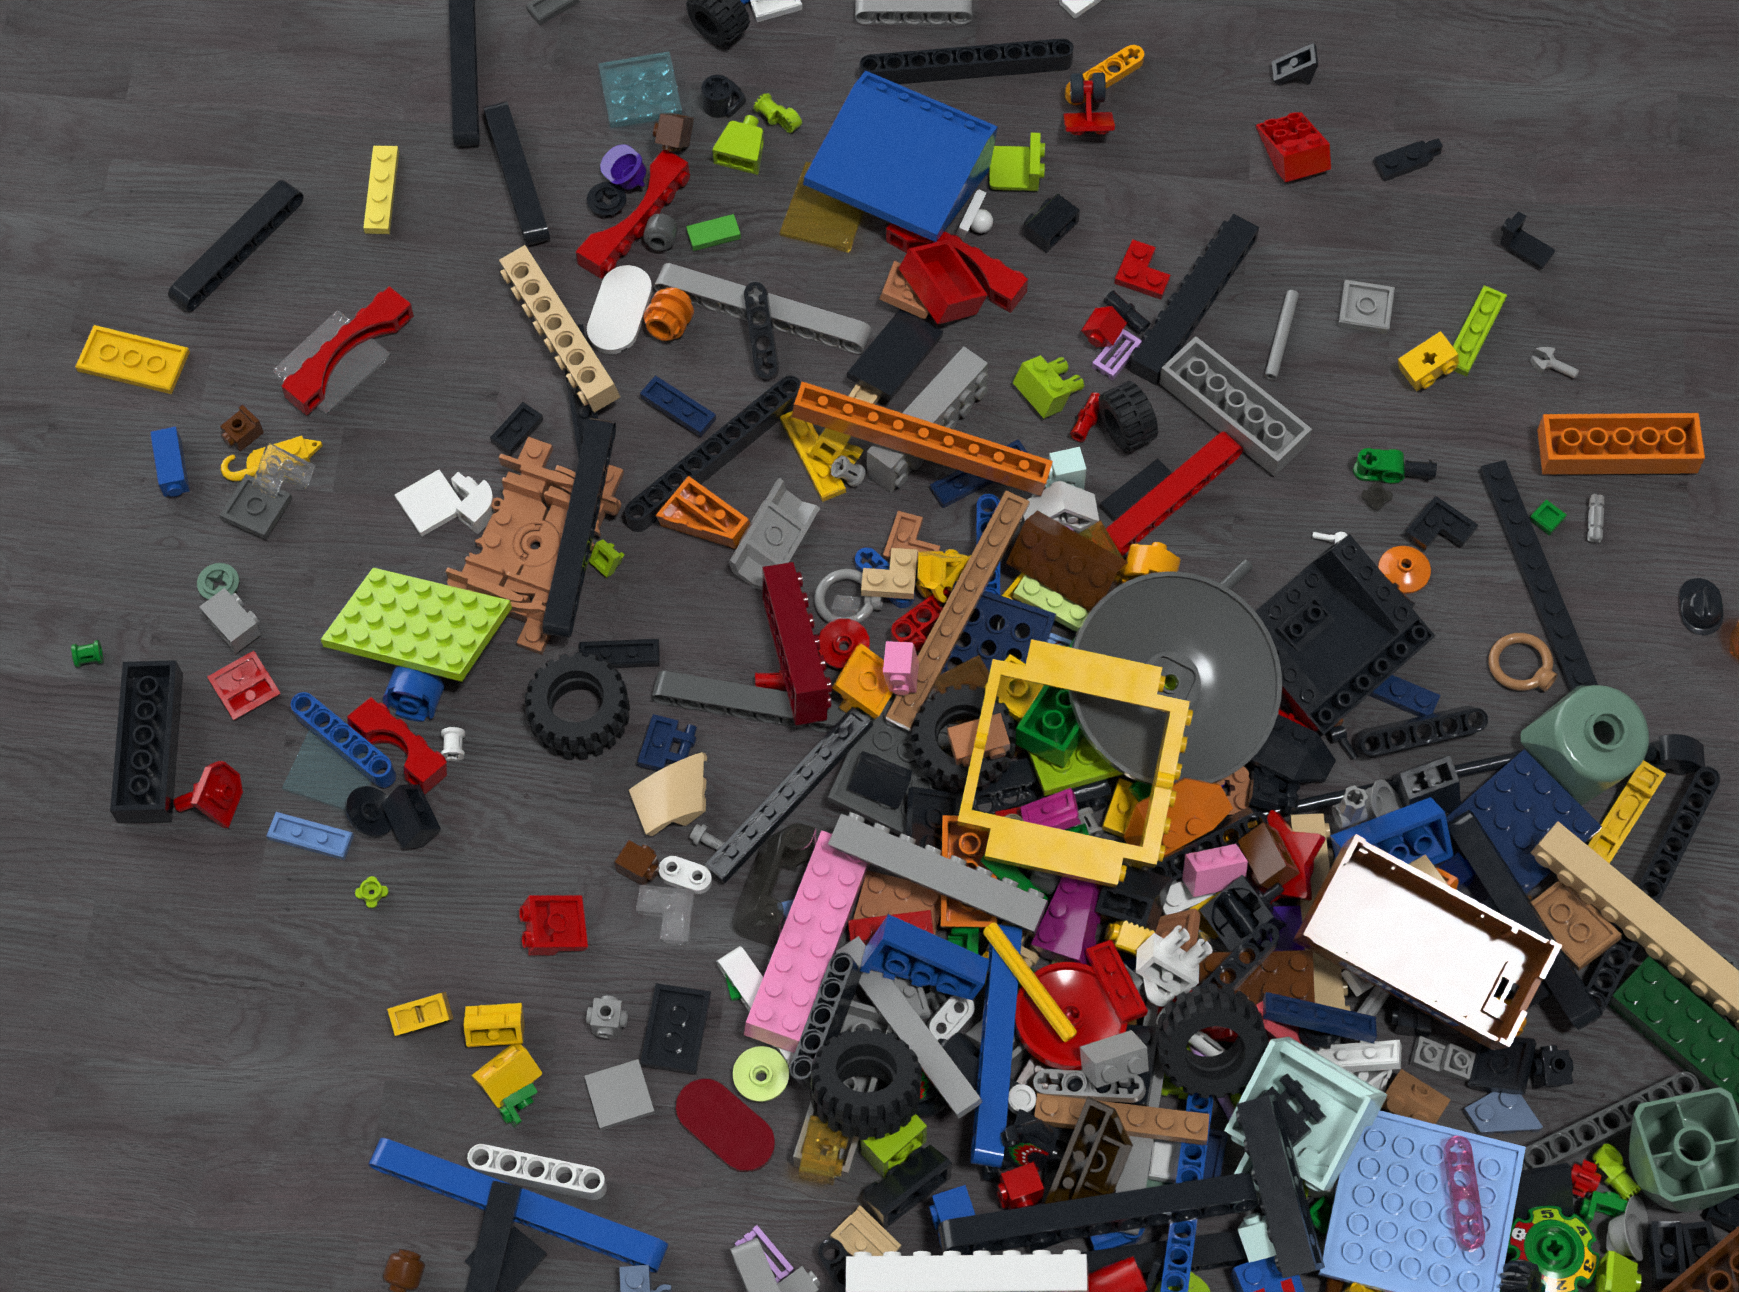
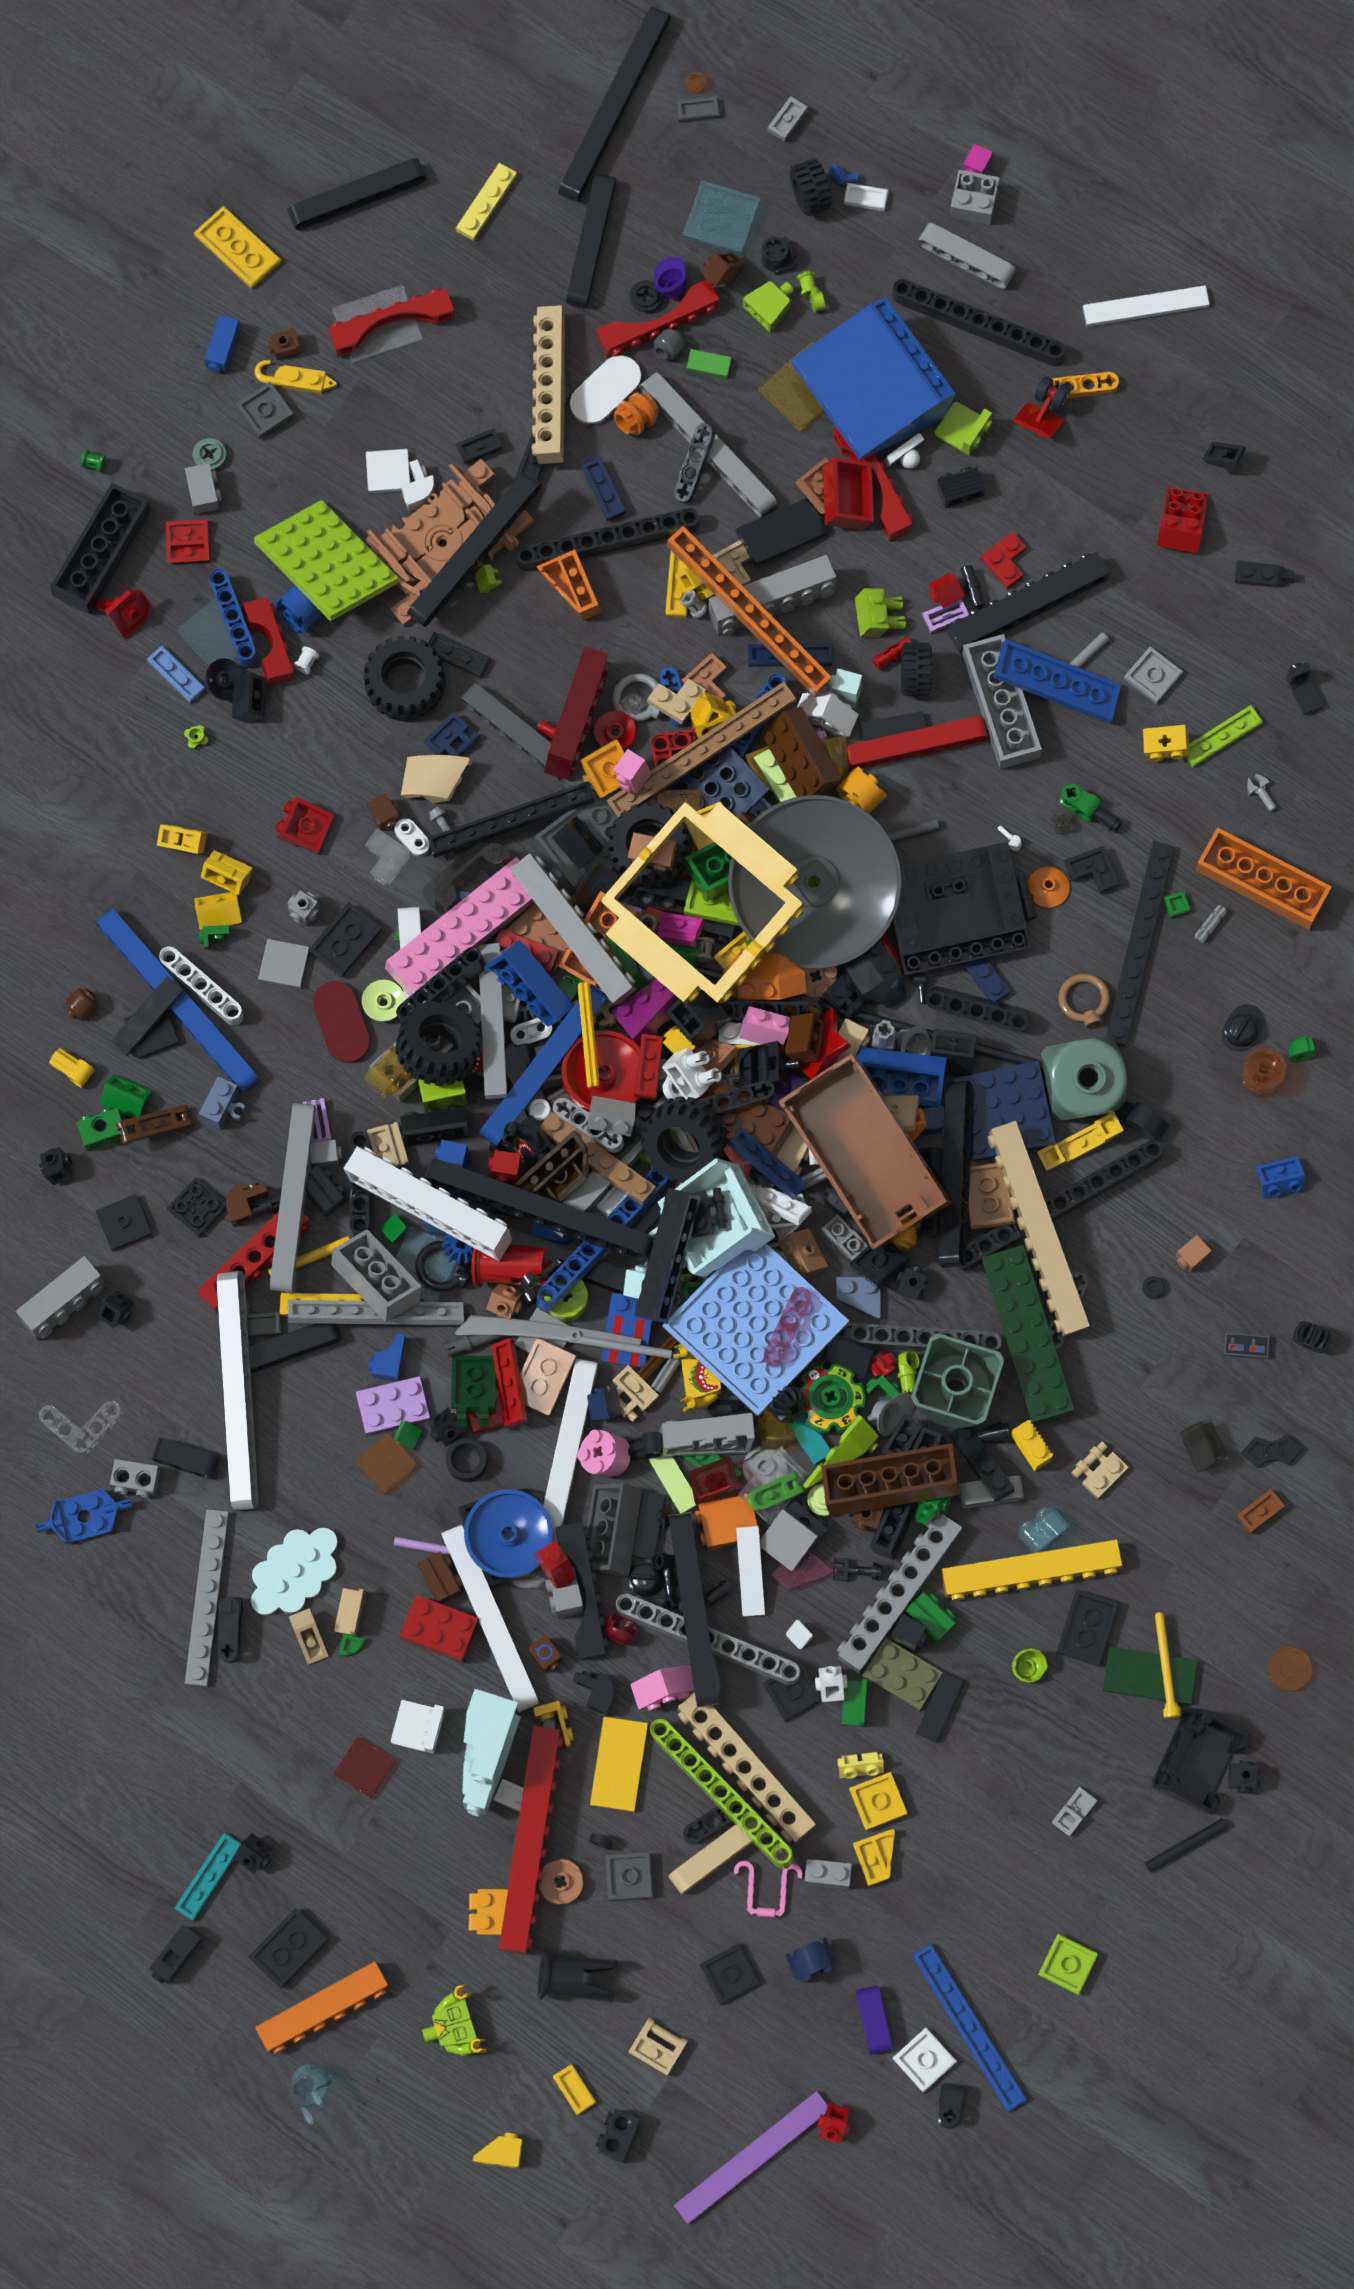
camera: 30 degrees right, 10 degrees up
(279, 466) = (294, 388): clear plate -> none
(772, 534) = (613, 623): light grey piece -> none
(1280, 355) = (1057, 681): none -> blue plate

